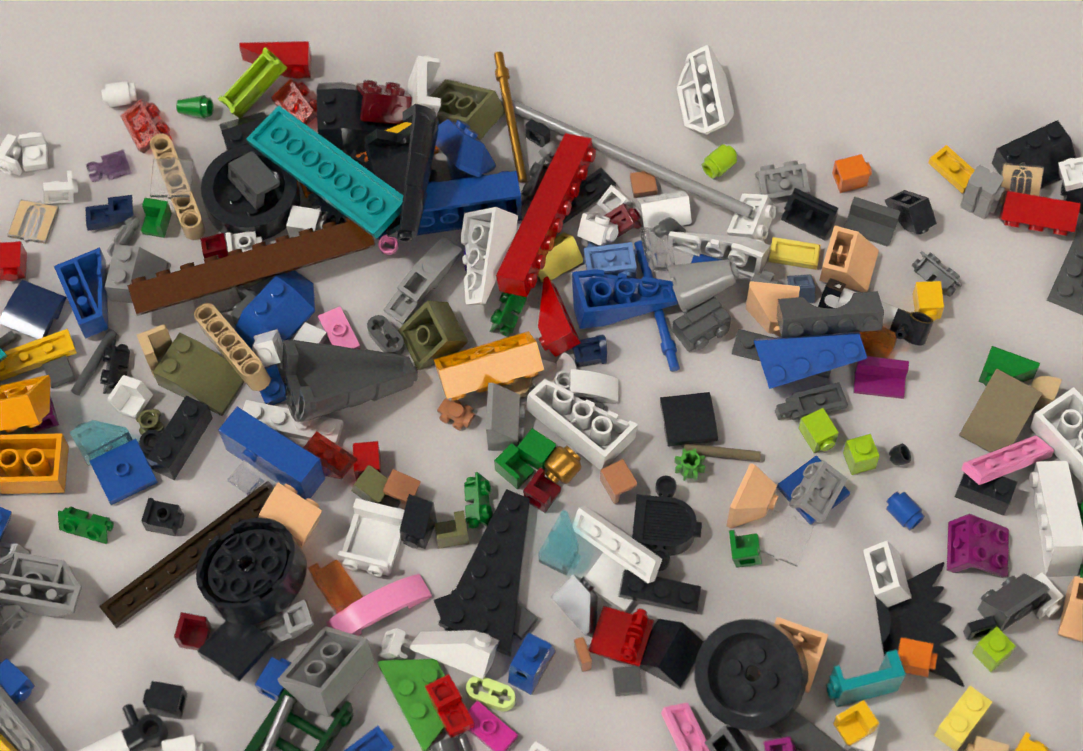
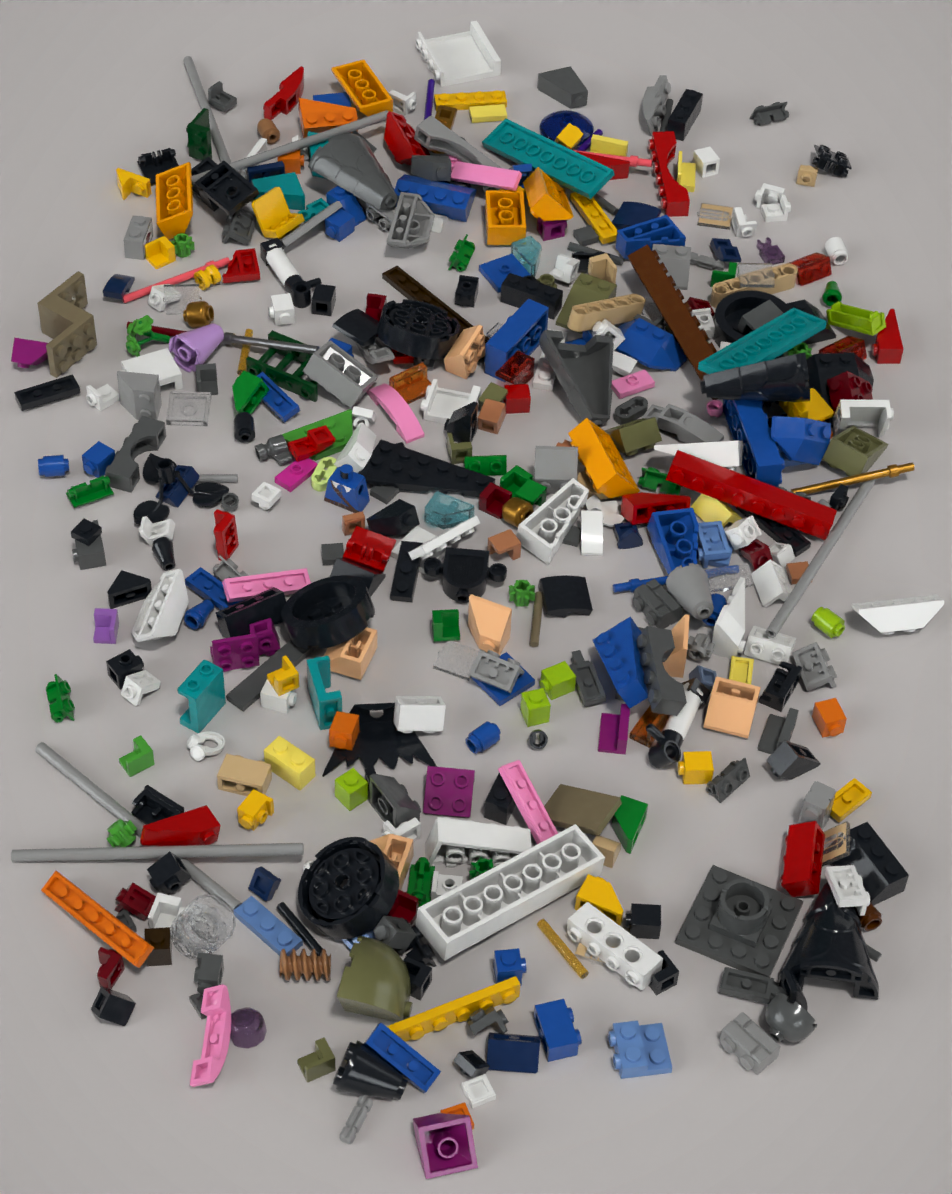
camera: 85 degrees right, 15 degrees down
(667, 225) = (752, 581): dark grey arm -> none

